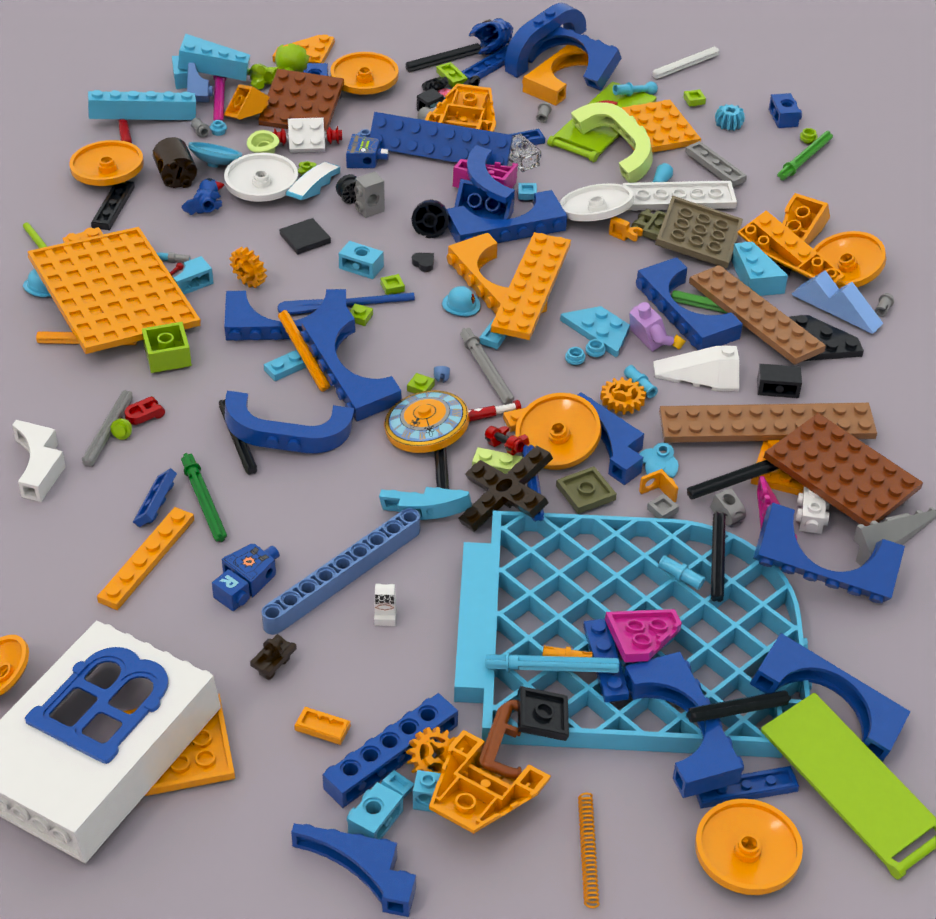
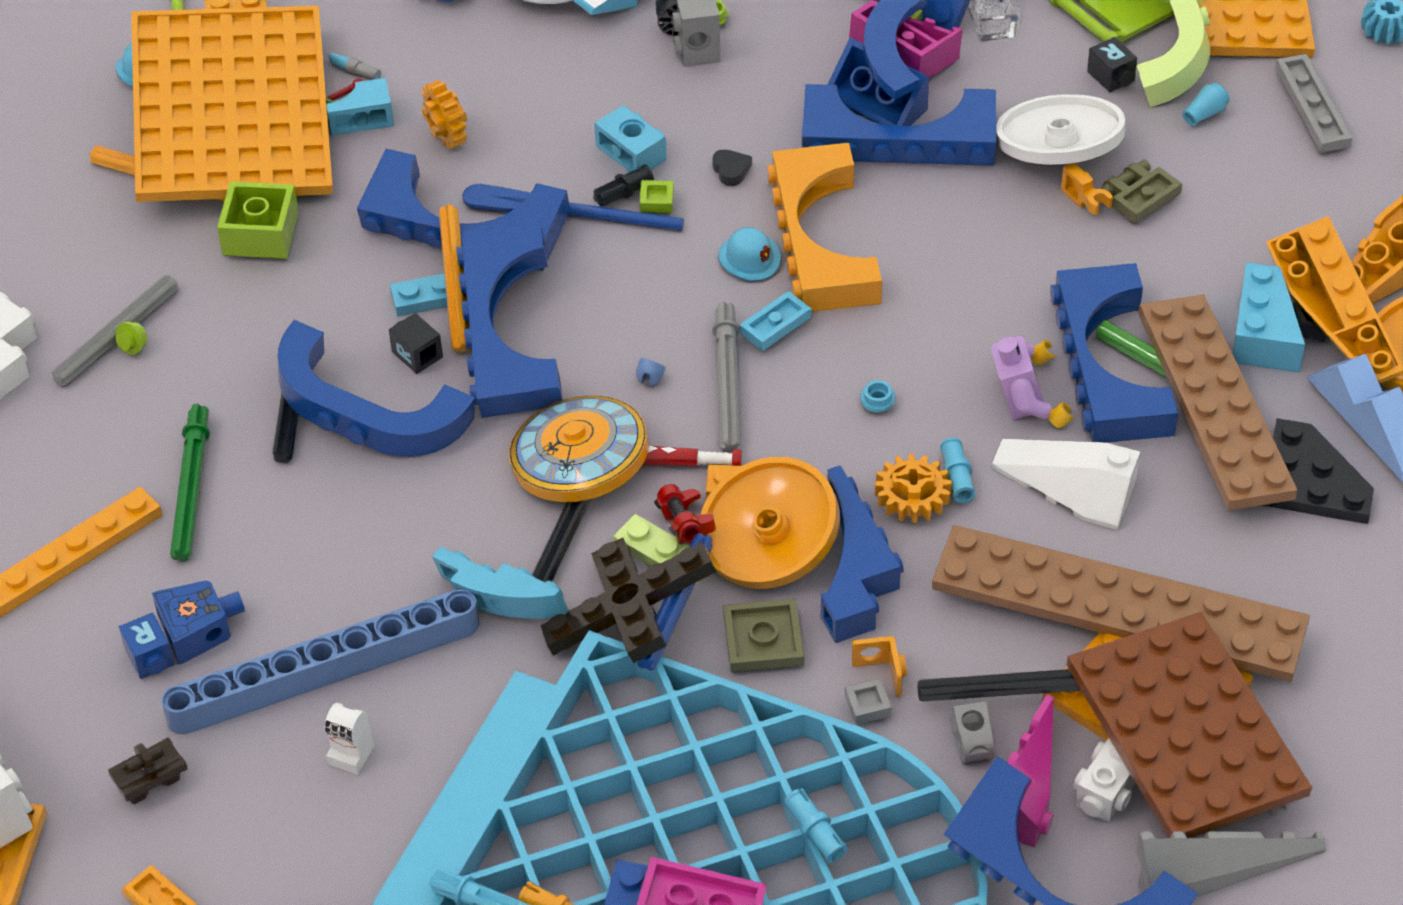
camera: 25 degrees right, 5 degrees up
(143, 411) = (165, 316): red plate -> none
(155, 498) = (120, 465): blue plate -> none
(298, 390) = (415, 343): none -> black brick
(305, 236) = (571, 77): black tile -> none
(361, 314) = (581, 235): lime plate -> none
(369, 283) = (622, 186): none -> black axle
(420, 383) = (609, 381): lime plate -> none
(430, 218) = (773, 94): black cylinder -> none
(526, 191) = (961, 78): medium azure plate -> none
(531, 286) = (862, 256): light orange plate -> none
(595, 348) = (918, 391): medium azure plate -> none
(598, 324) = (948, 355): medium azure wing -> none
(602, 167) = (1112, 64): none -> black brick
(655, 460) = (907, 620): medium azure plate -> none
(659, 194) = (1217, 148): white plate -> none
(699, 232) = (1205, 224): dark tan plate -> none
(718, 557) = (891, 816): black axle -> none
(779, 380) = (1188, 531): black brick -> none

